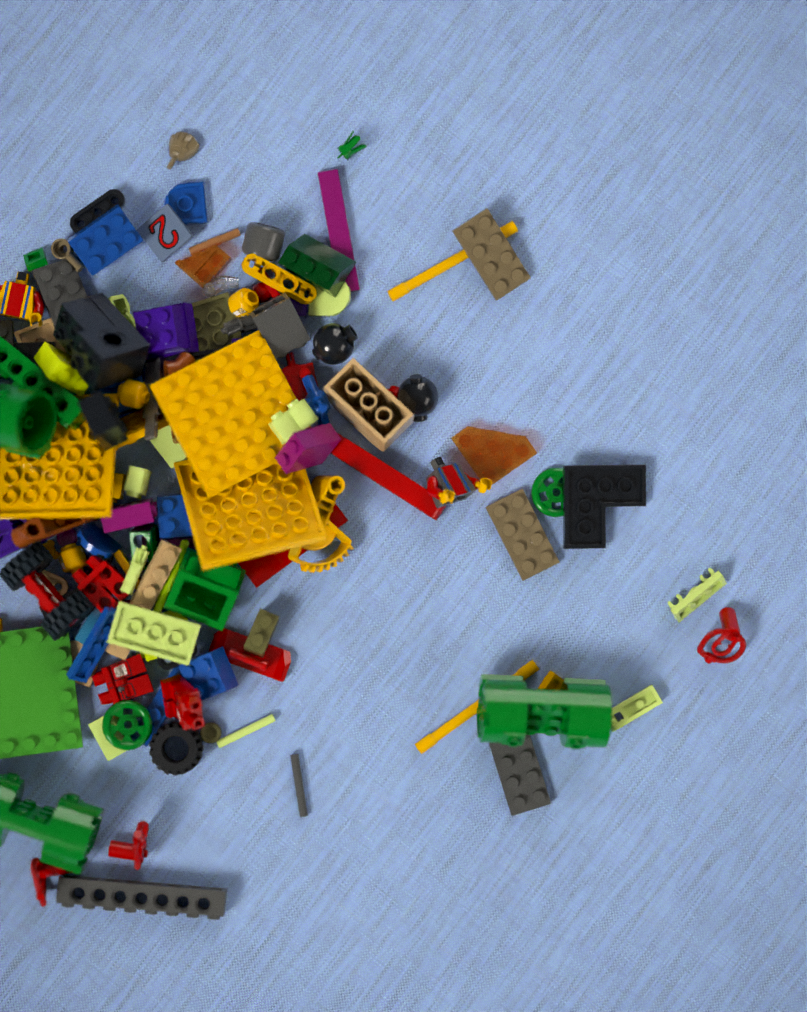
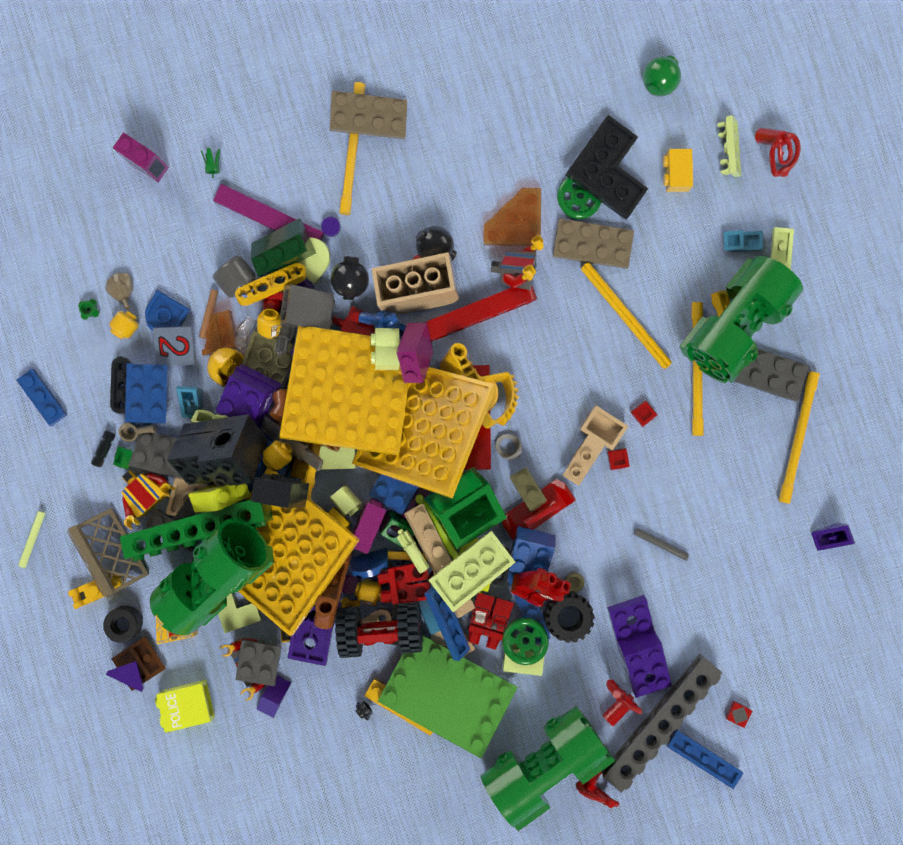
camera: 45 degrees left, 0 degrees up
(30, 236) = (103, 448): none -> black axle
(37, 149) = (41, 397): none -> blue plate
(126, 281) = (189, 400): none -> dark azure slope
(137, 134) = (84, 305): none -> green plate
(137, 956) = (704, 759): none -> blue plate
(151, 175) = (123, 324): none -> yellow head
(179, 288) = (223, 364): none -> yellow cylinder
(194, 828) = (639, 646): none -> dark purple bracket
(198, 960) = (738, 714): none -> red tile
(245, 731) = (592, 554): yellowish green bar -> none
(287, 601) = (508, 456): none -> light grey piece
(307, 85) = (140, 157): none -> magenta brick
(346, 693) = (618, 459): none -> red tile
(360, 661) = (601, 432): none -> tan plate
(369, 292) = (330, 226): none -> dark purple tile
(403, 687) = (643, 413): none -> red tile
(412, 930) = (833, 536): none -> dark purple slope
(479, 609) = (626, 315): none -> yellow axle
(531, 819) = (810, 388): none -> yellow piece
(621, 666) = (743, 241): none -> dark azure slope
(641, 563) = (678, 170): none -> yellow brick
(715, 488) = (662, 75): none -> green brick

